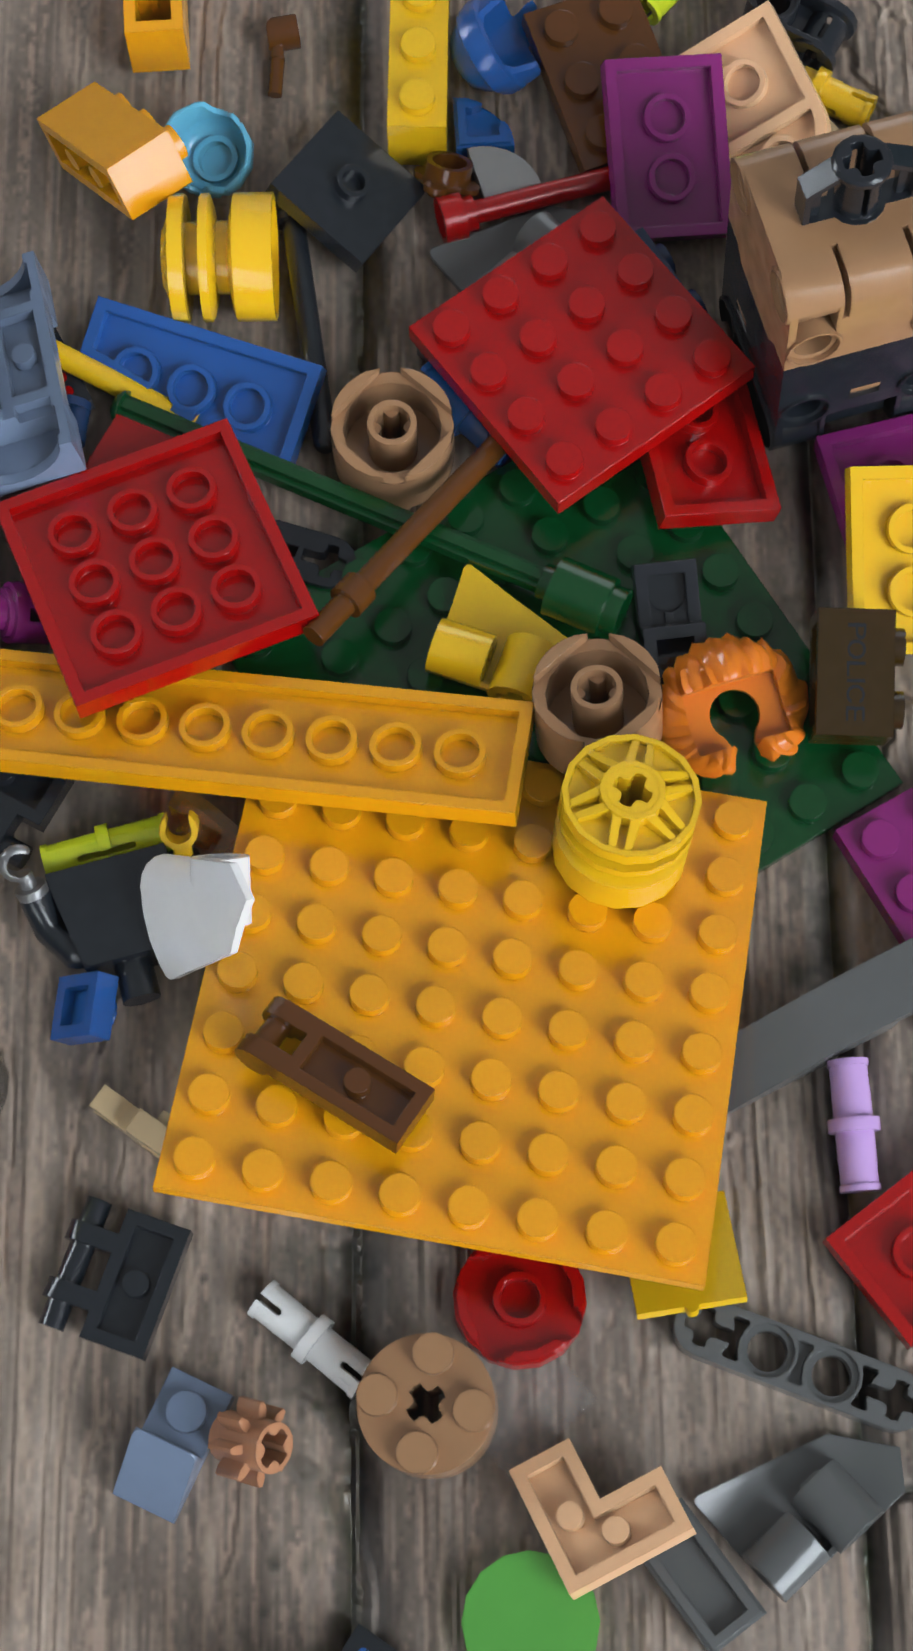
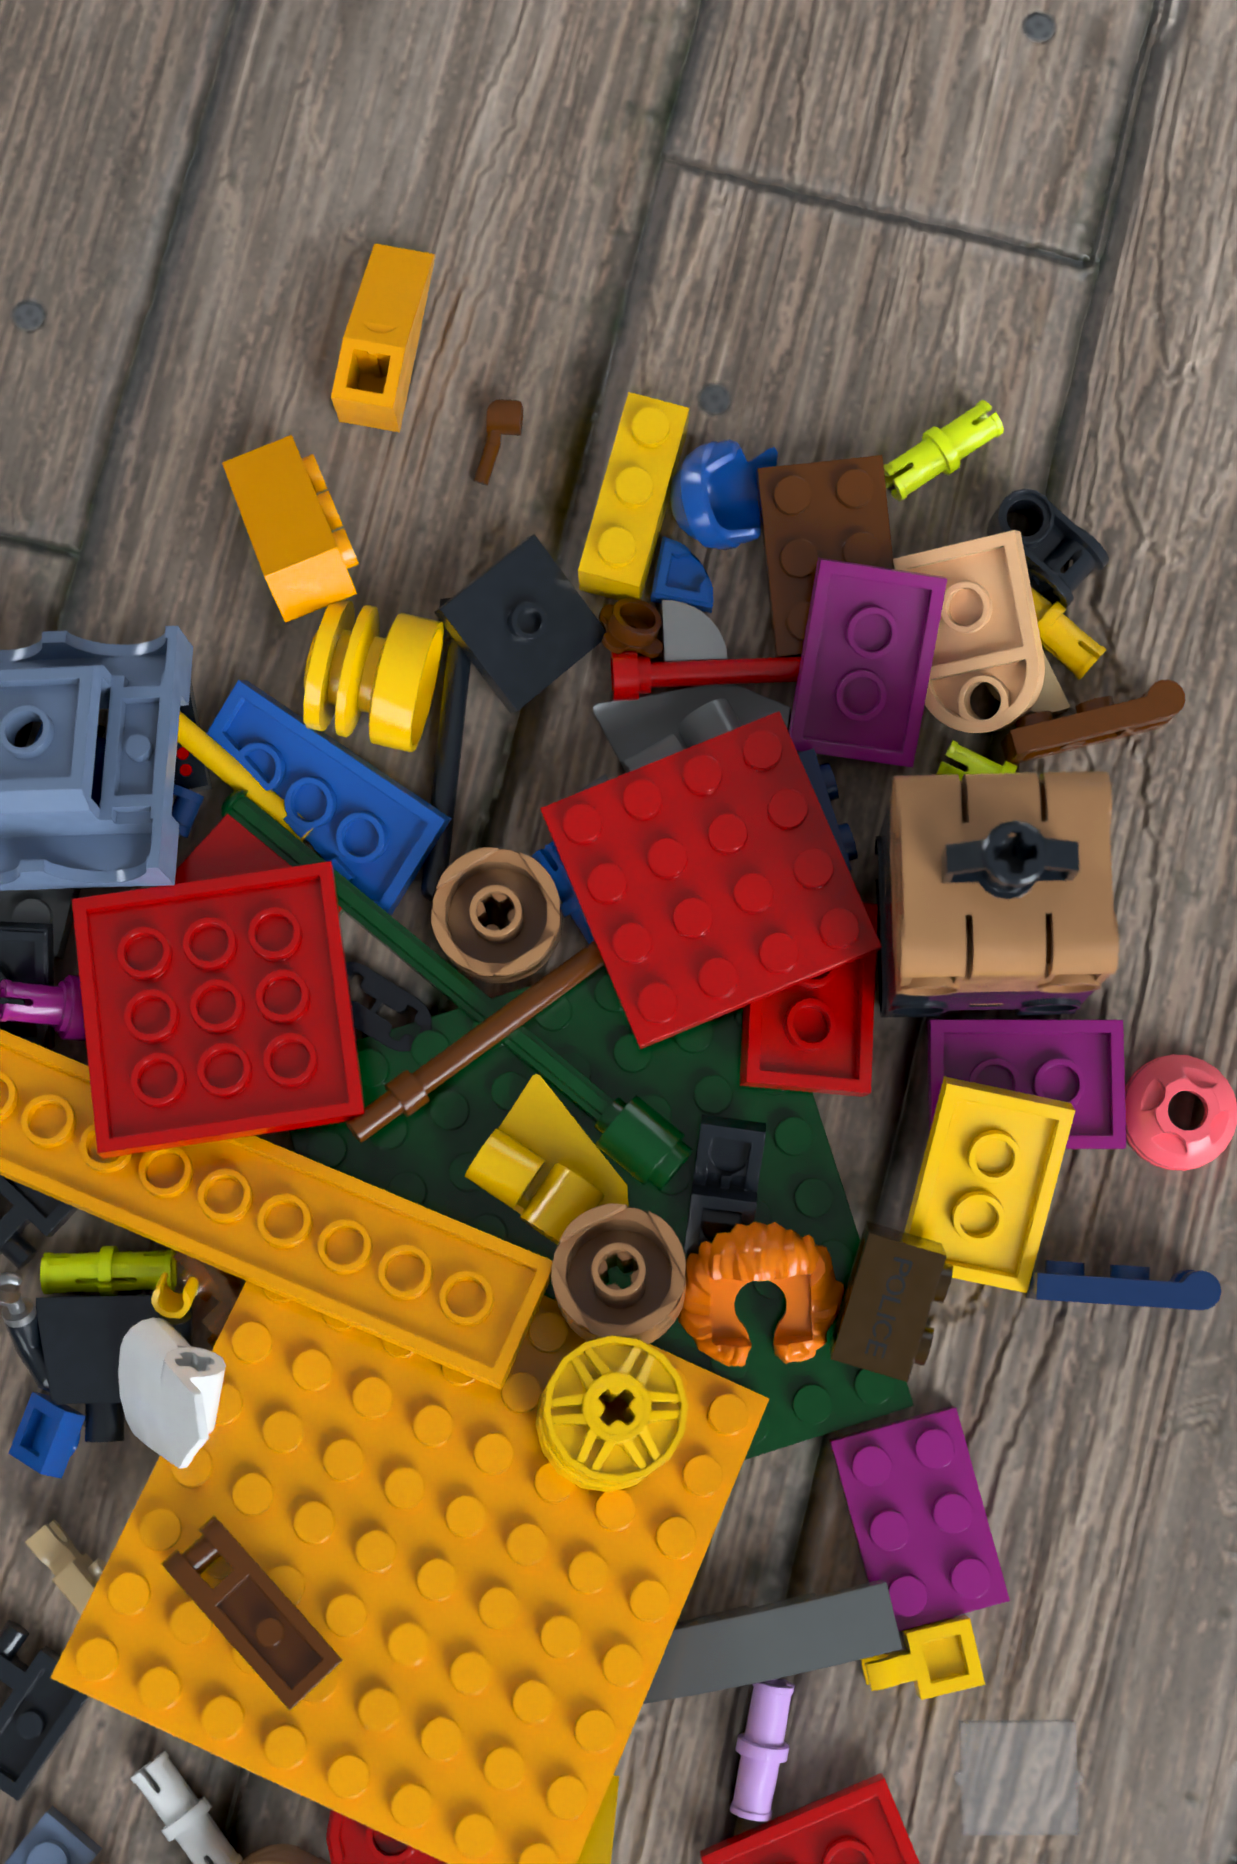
camera: 15 degrees right, 10 degrees up
(216, 148) = (392, 540): medium azure hair -> none

